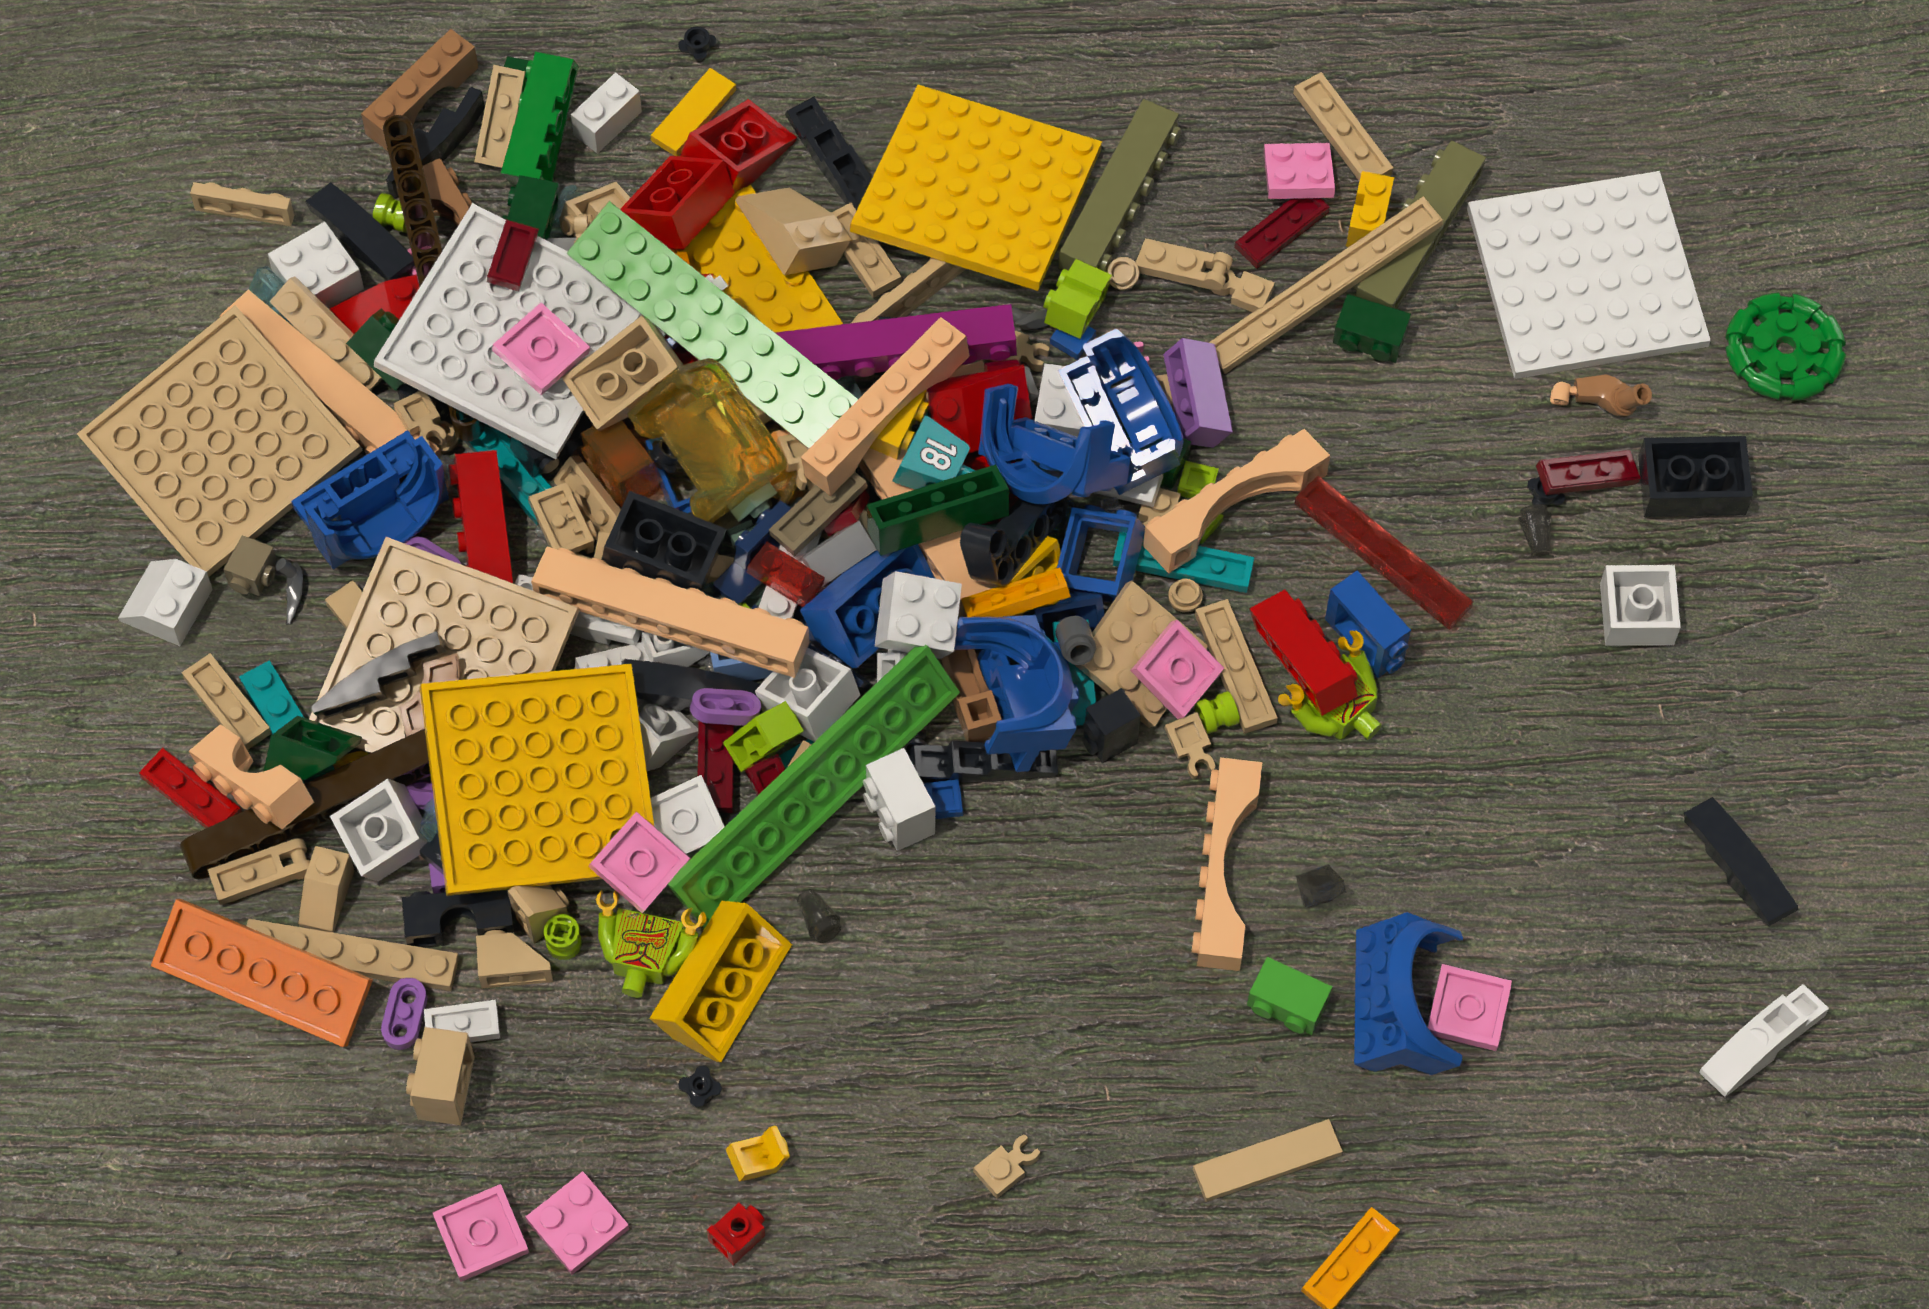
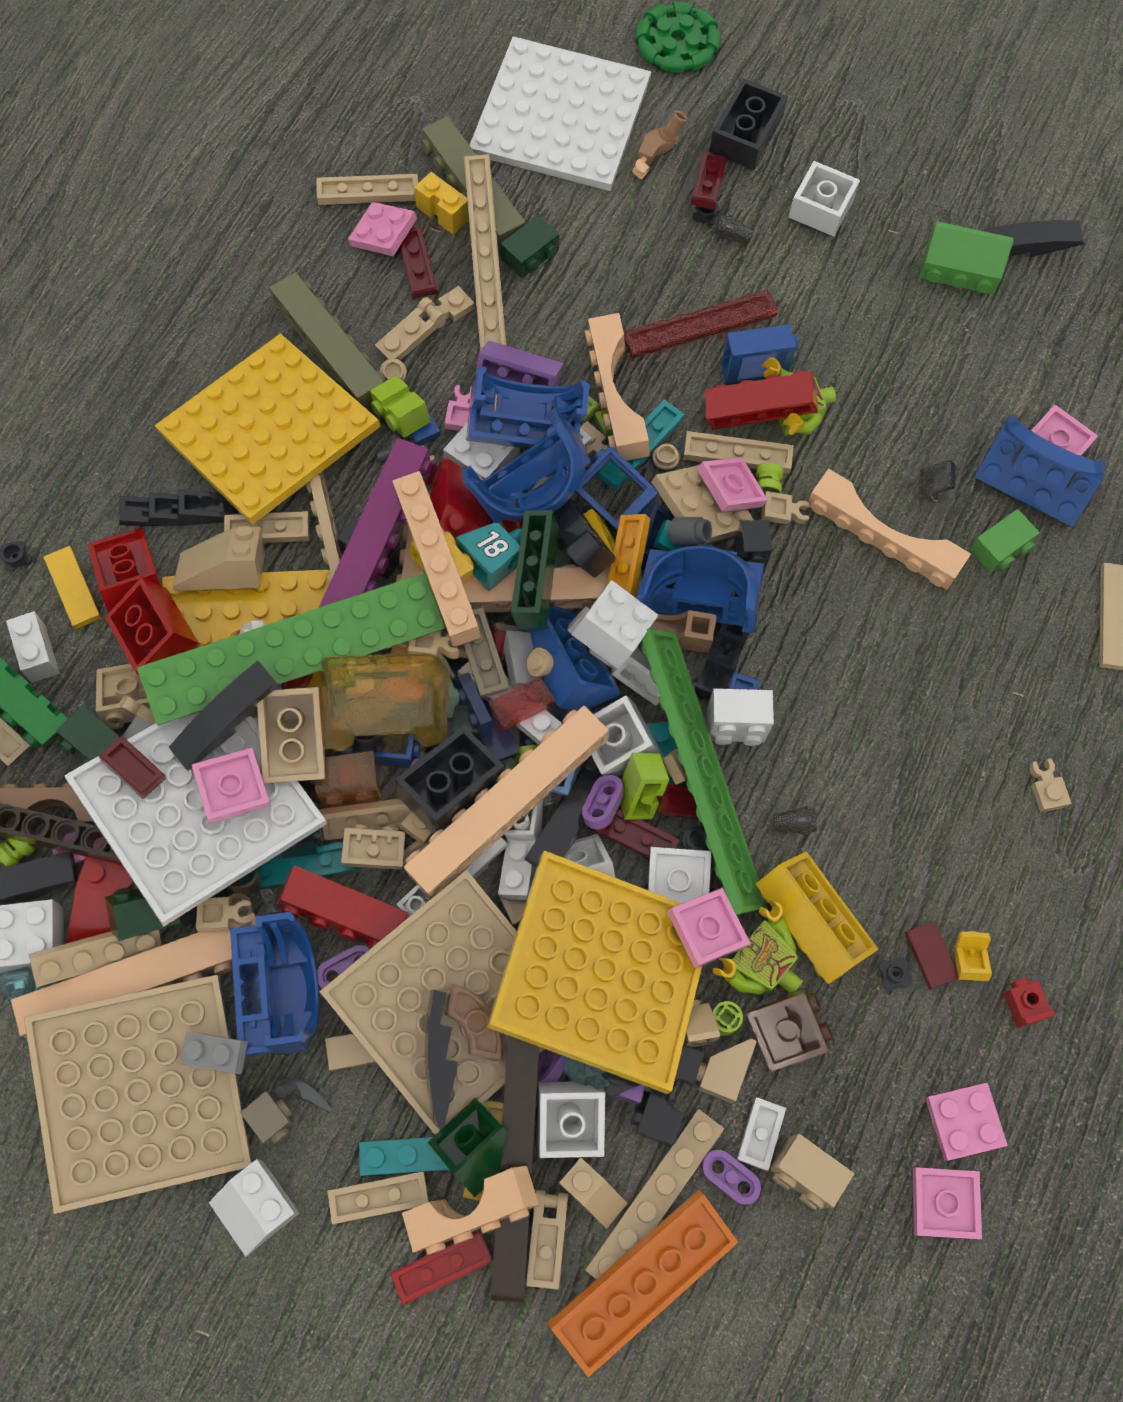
camera: 65 degrees left, 5 degrees up
(283, 479) = (214, 1053): none -> light grey plate
(582, 1001) = (790, 1029): none -> plate
(605, 301) = (222, 715): none -> black slope
(741, 1116) = (931, 955): none -> dark red tile
(840, 569) = (539, 662): none -> tan plate
(1651, 797) = (965, 258): none -> bright green slope

